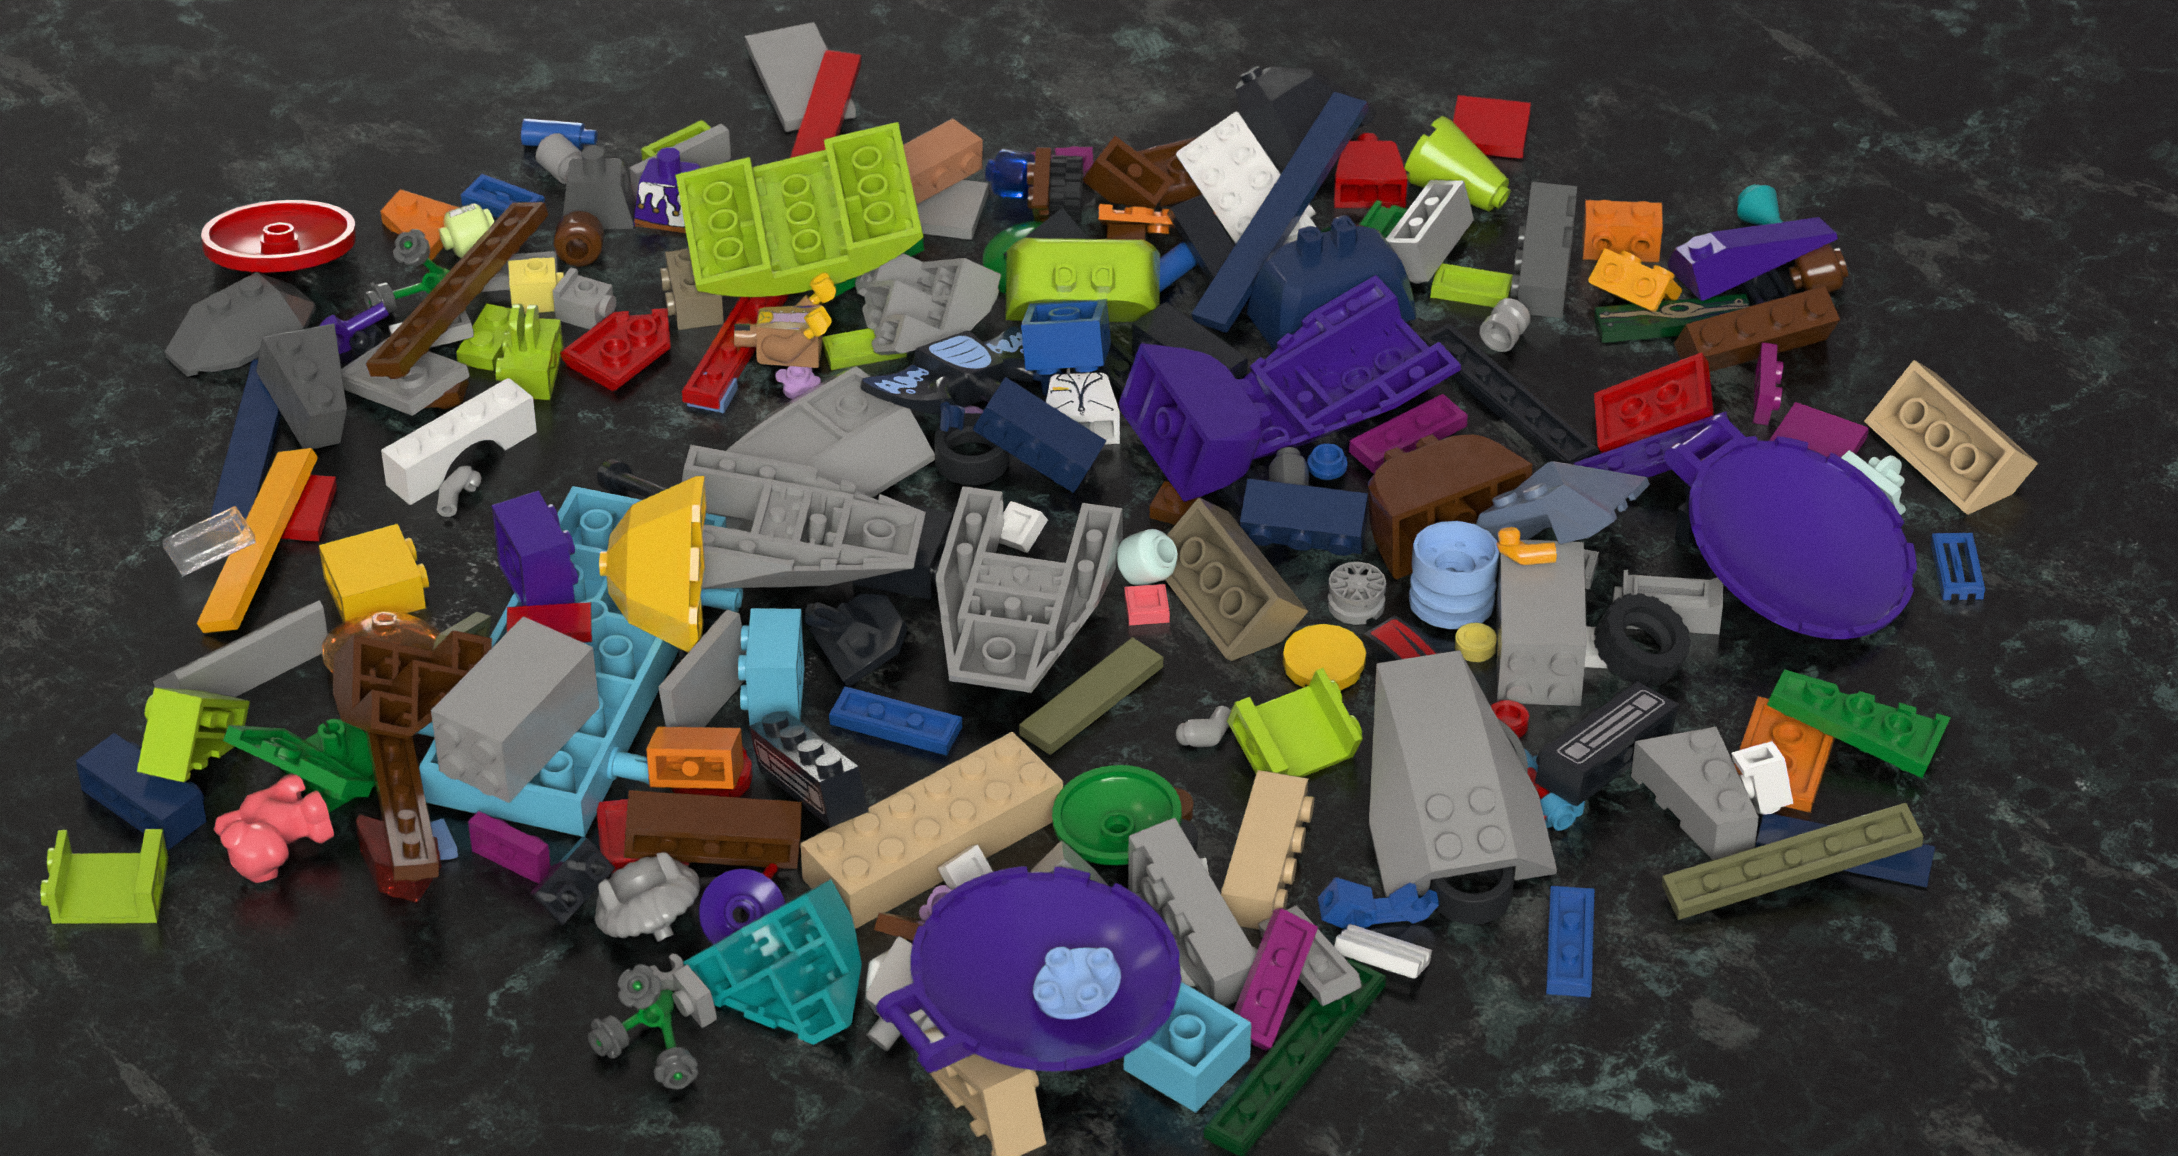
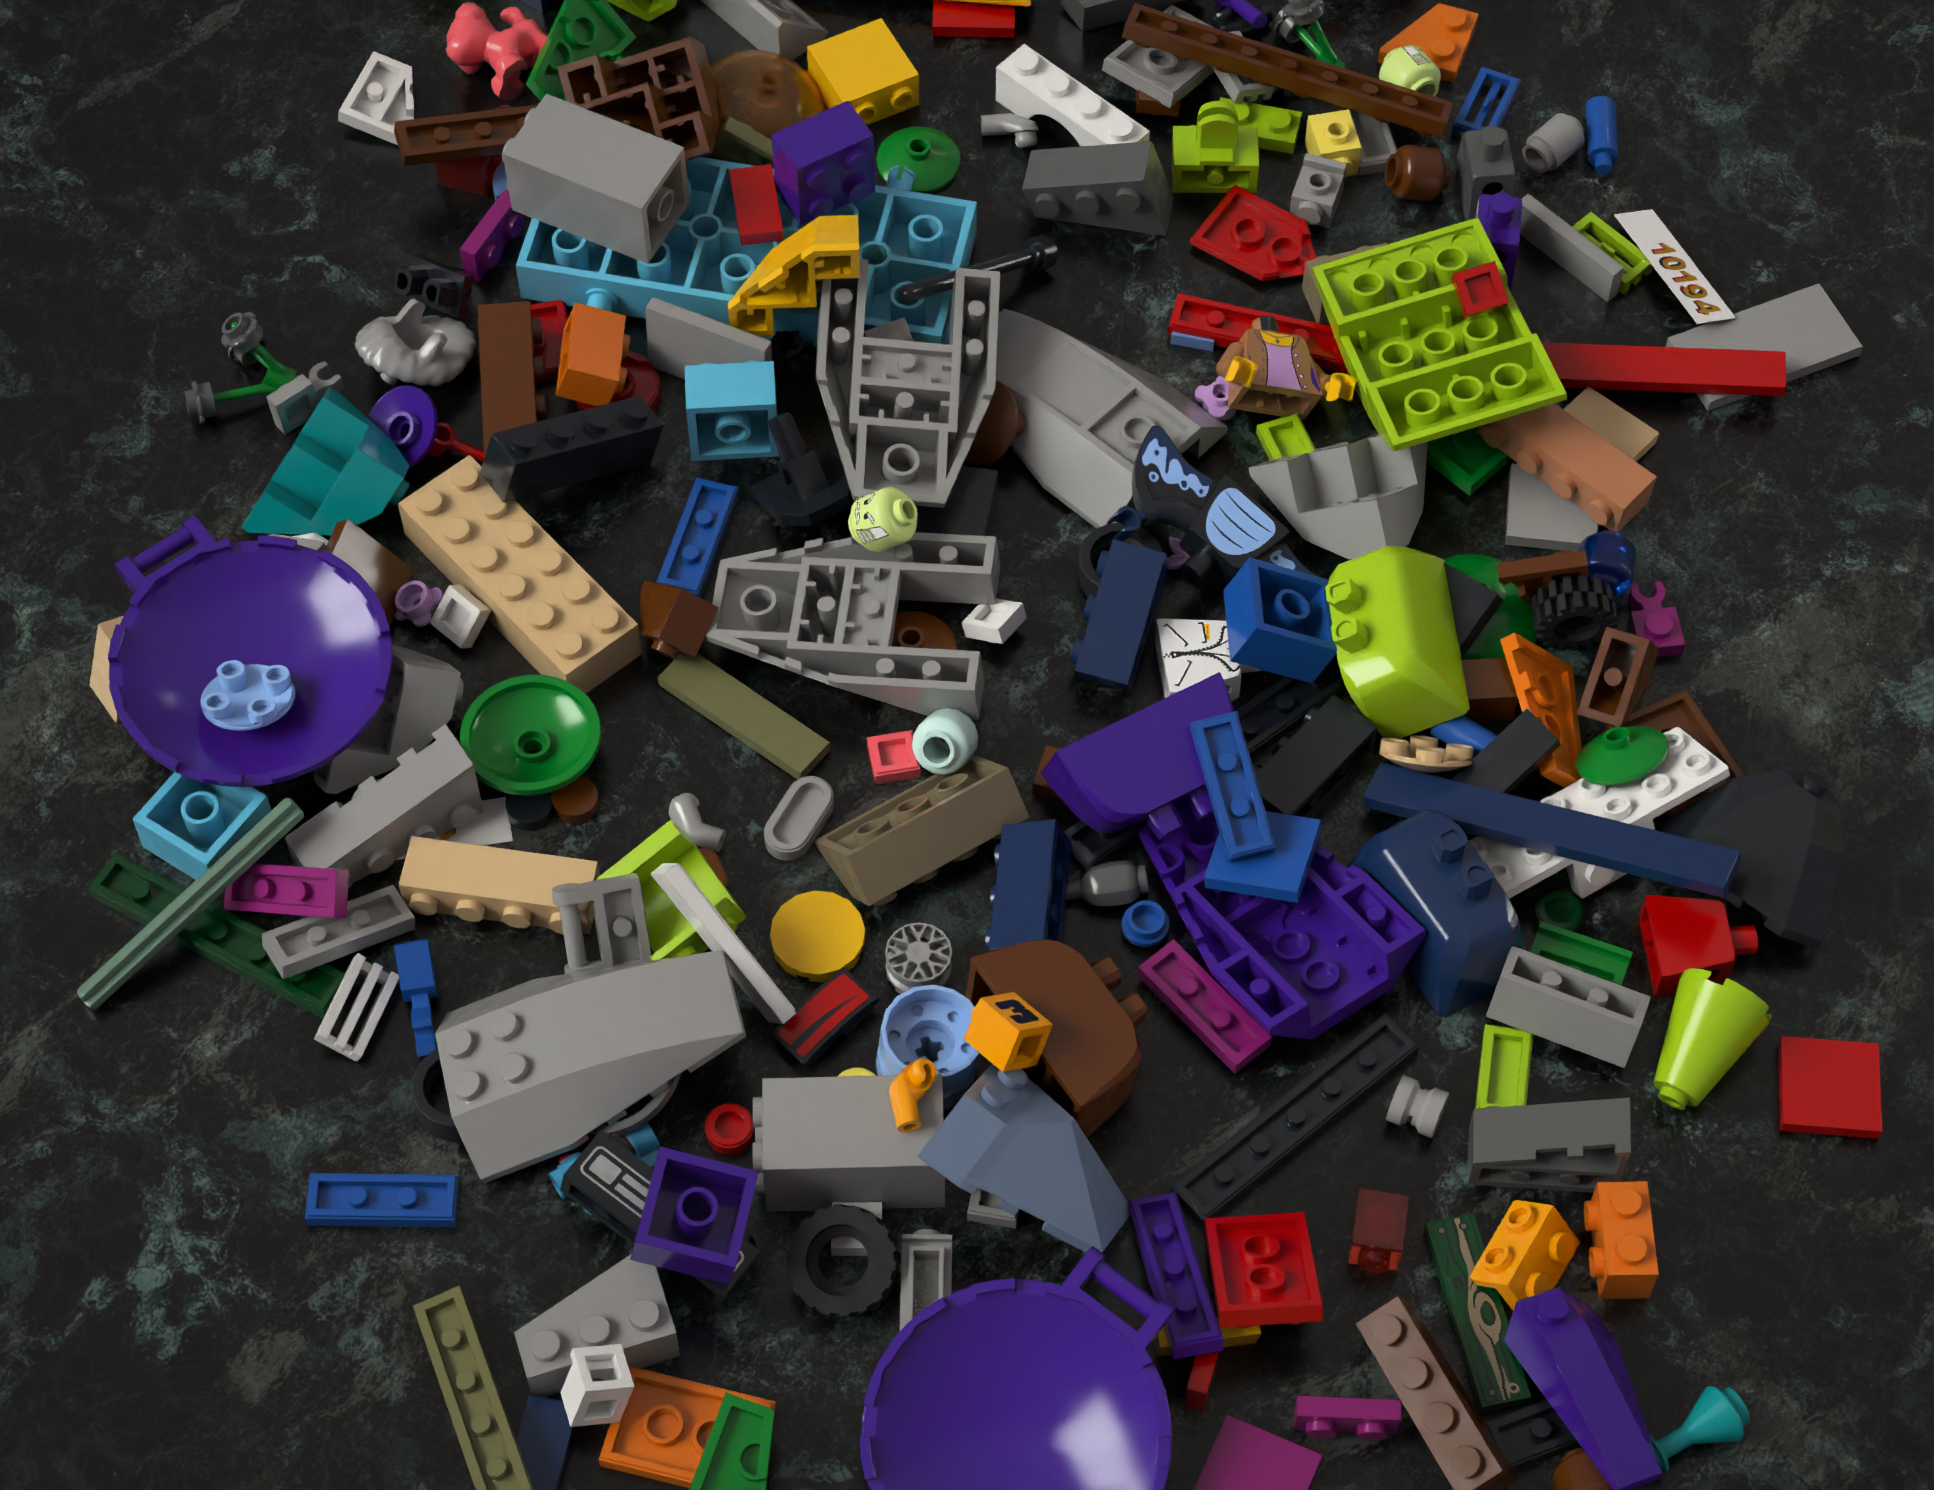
camera: 85 degrees right, 15 degrees up
(305, 933) = (379, 98): none -> white wing
(468, 559) = (924, 151): none -> green dish
(553, 423) = (1101, 186): none -> dark grey wedge
(709, 110) = (1675, 266): none -> white sticker
(763, 173) = (1480, 289): none -> red tile
(947, 539) = (883, 519): none -> yellowish green head
(1004, 709) = (674, 619): none -> reddish brown slope
(1192, 283) = (1425, 755): none -> tan dish
(1203, 666) = (799, 818): none -> light grey tile
(1206, 171) = (1622, 755): none -> green dish
(1240, 358) = (1232, 786): none -> blue tile
(1282, 1048) = (190, 903): none -> sand green axle
(1288, 368) = (1271, 874): none -> blue tile
(1324, 771) = (617, 917): none -> light grey plate
(1343, 674) = (720, 936): none -> white tile
(1469, 490) = (1008, 1031): none -> light orange brick
(1611, 354) = (1378, 1230): none -> clear red brick
(1628, 686) = (694, 1215): none -> dark purple brick

